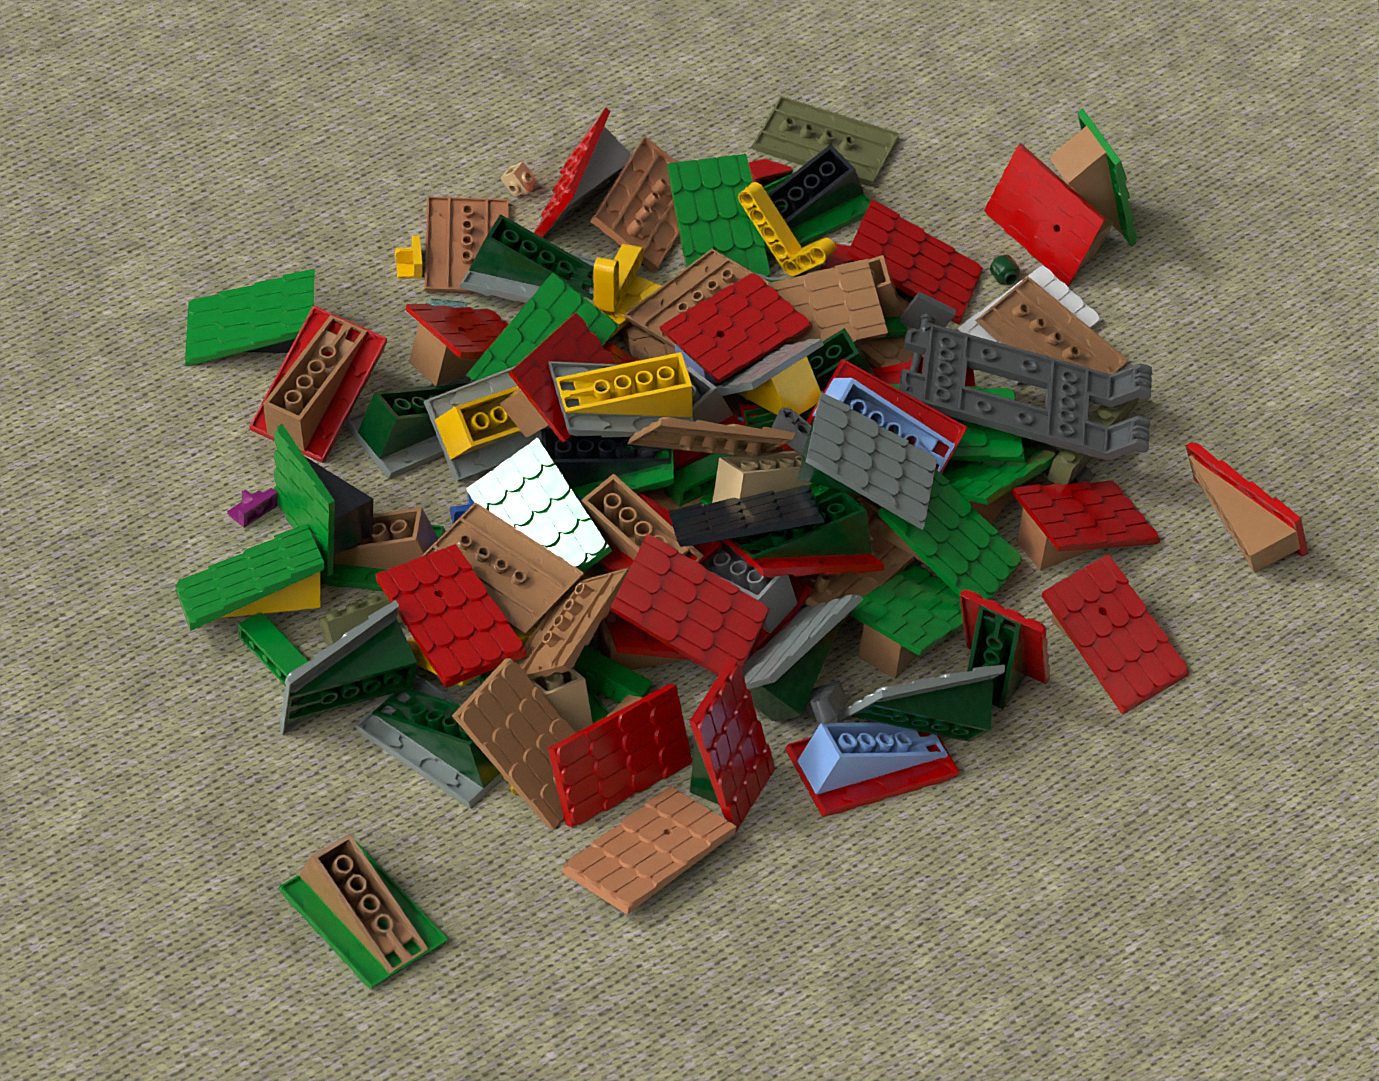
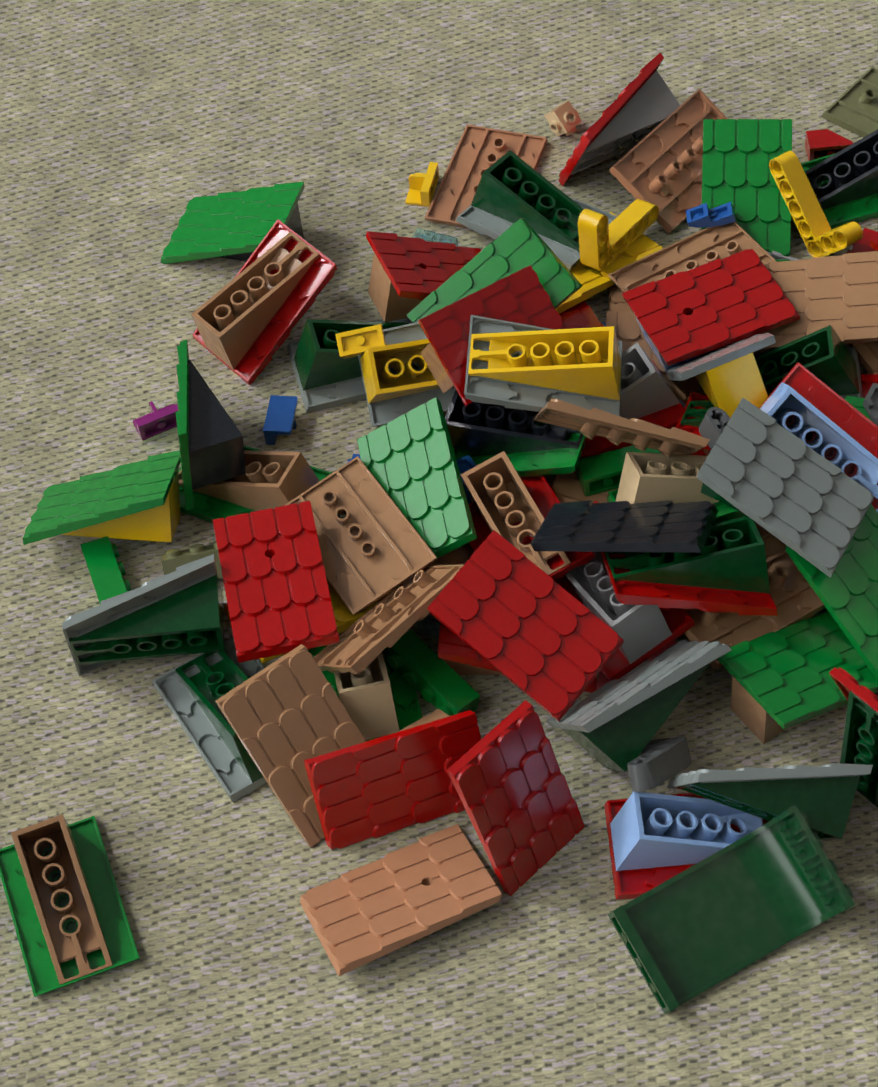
camera: 30 degrees right, 5 degrees up
(372, 481) = (280, 417): none -> blue panel
(438, 402) = (357, 341): none -> yellow panel
(690, 252) = (704, 217): none -> blue slope
(926, 796) = (731, 909): none -> dark green panel

